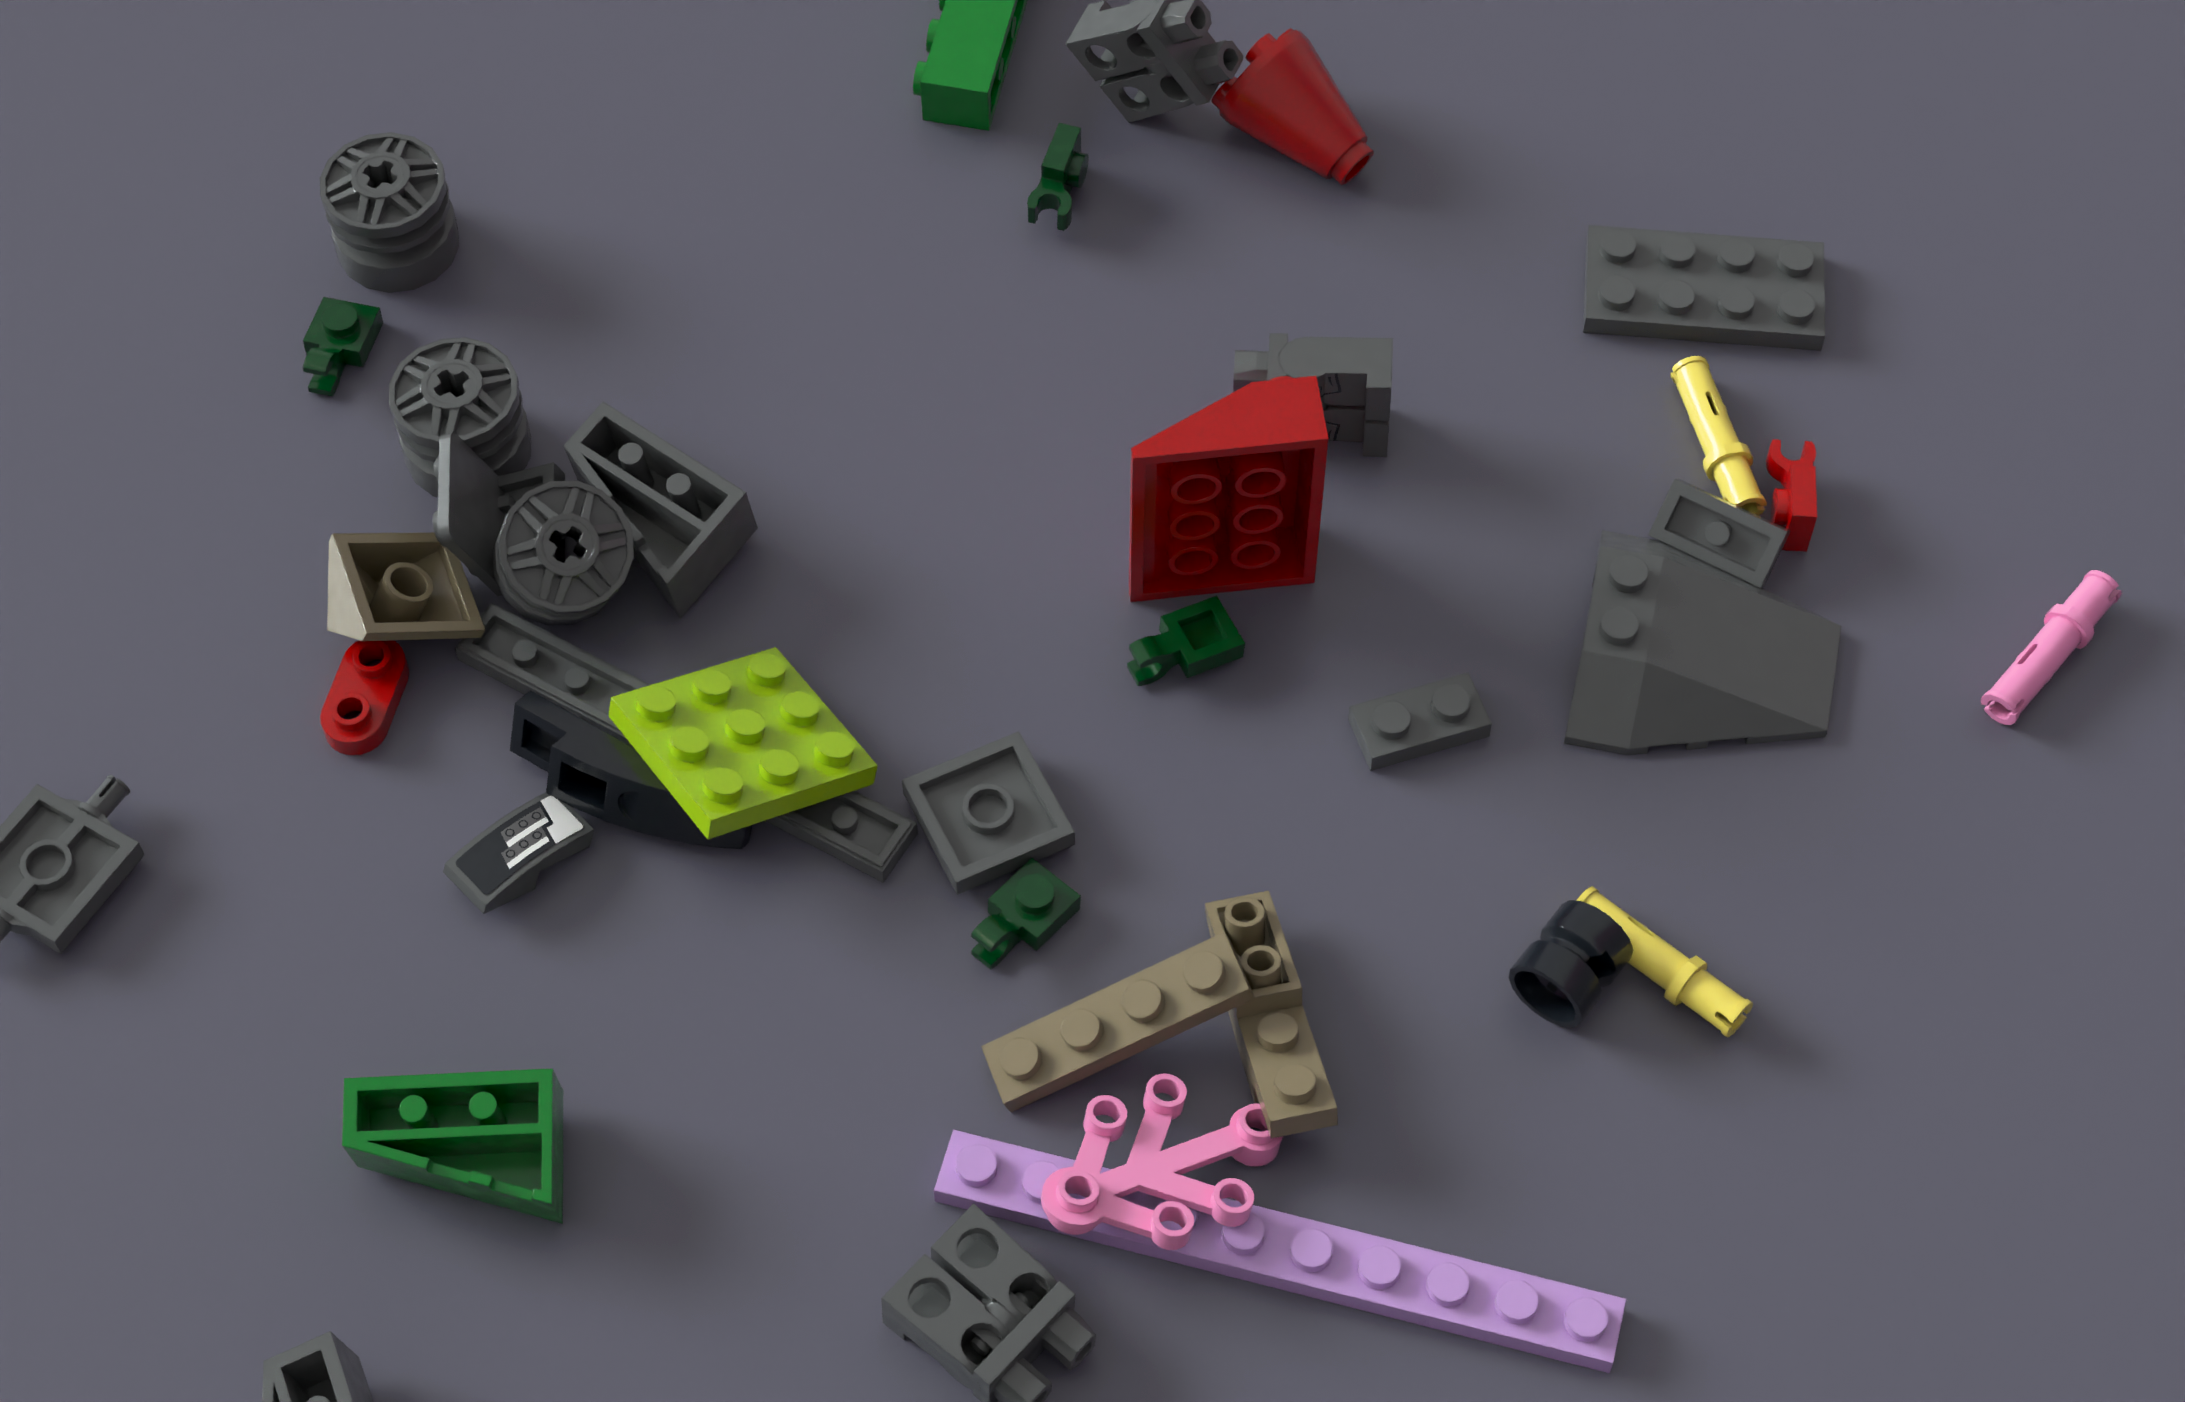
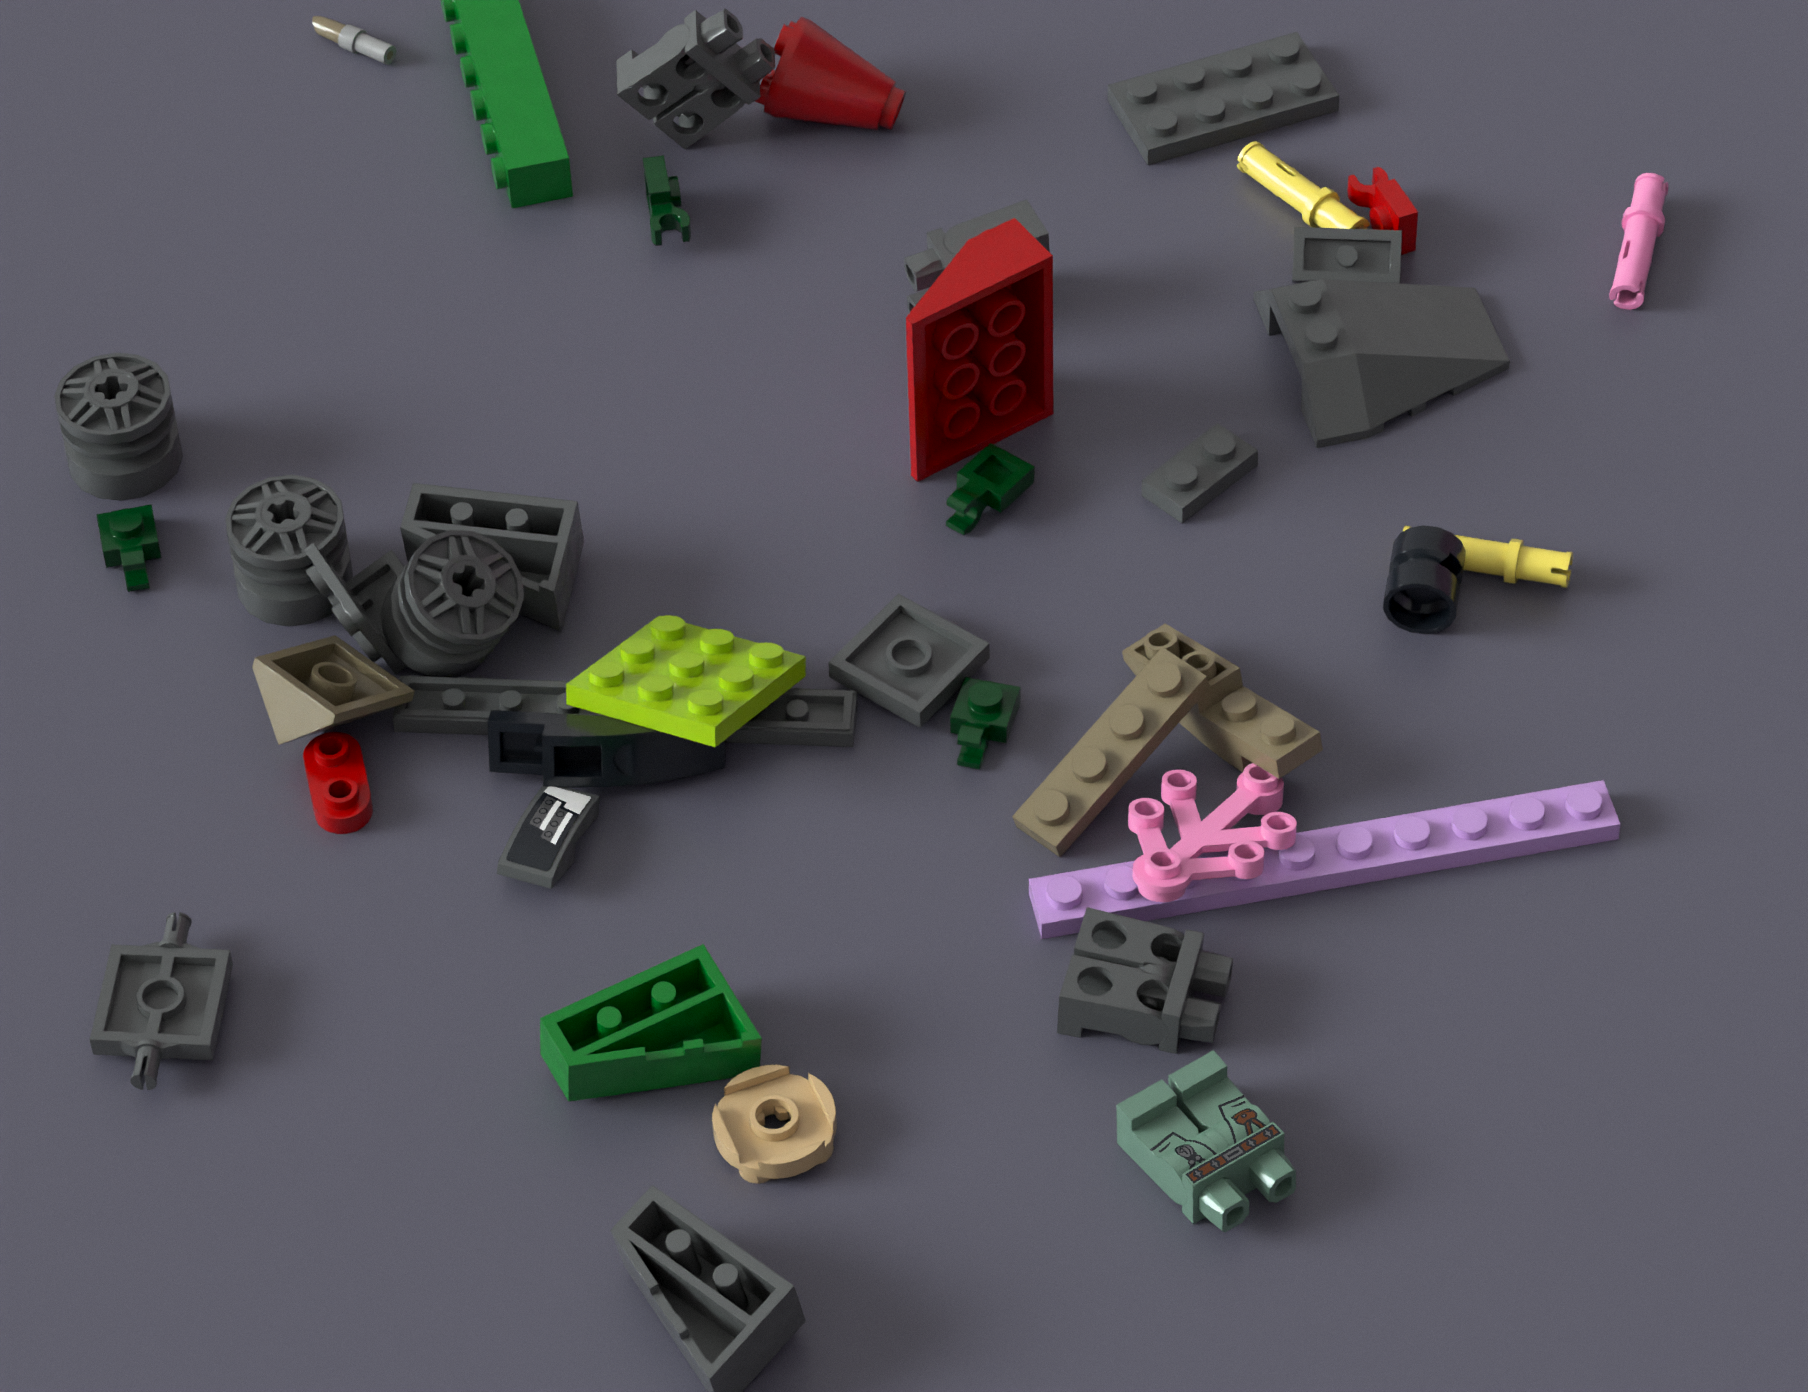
camera: 25 degrees left, 10 degrees down
(537, 1334) = (778, 1152): none -> tan plate

